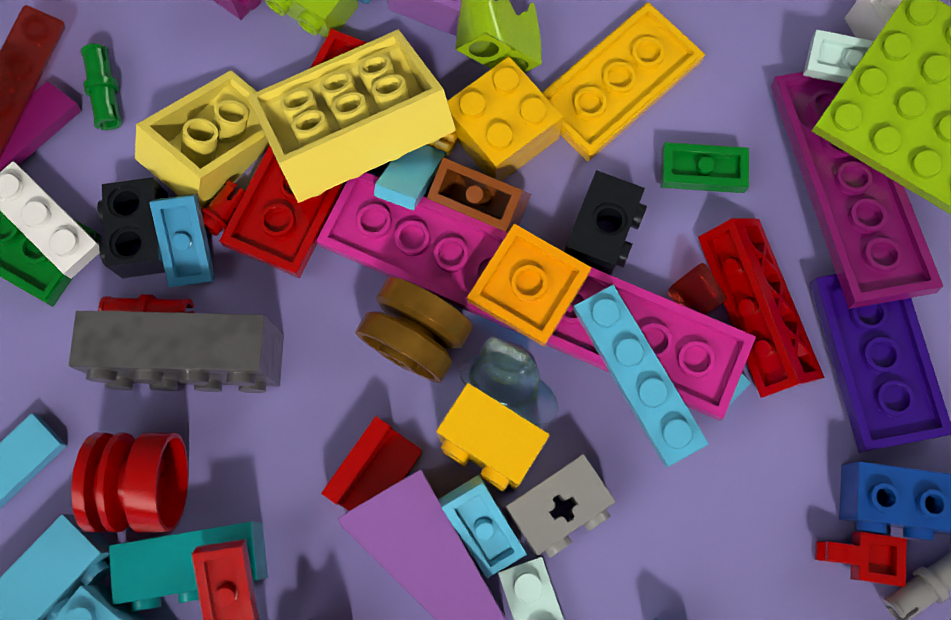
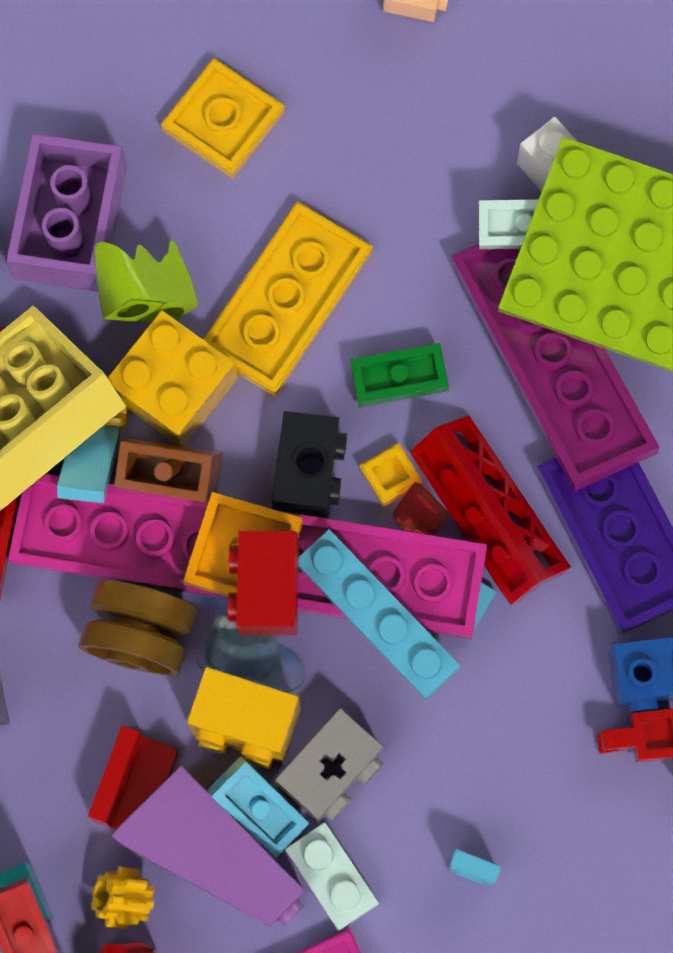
camera: 15 degrees left, 0 degrees up
(333, 579) = (122, 897): none -> yellow gear
(544, 318) = (265, 583): none -> red brick
(675, 252) = (390, 474): none -> yellow tile

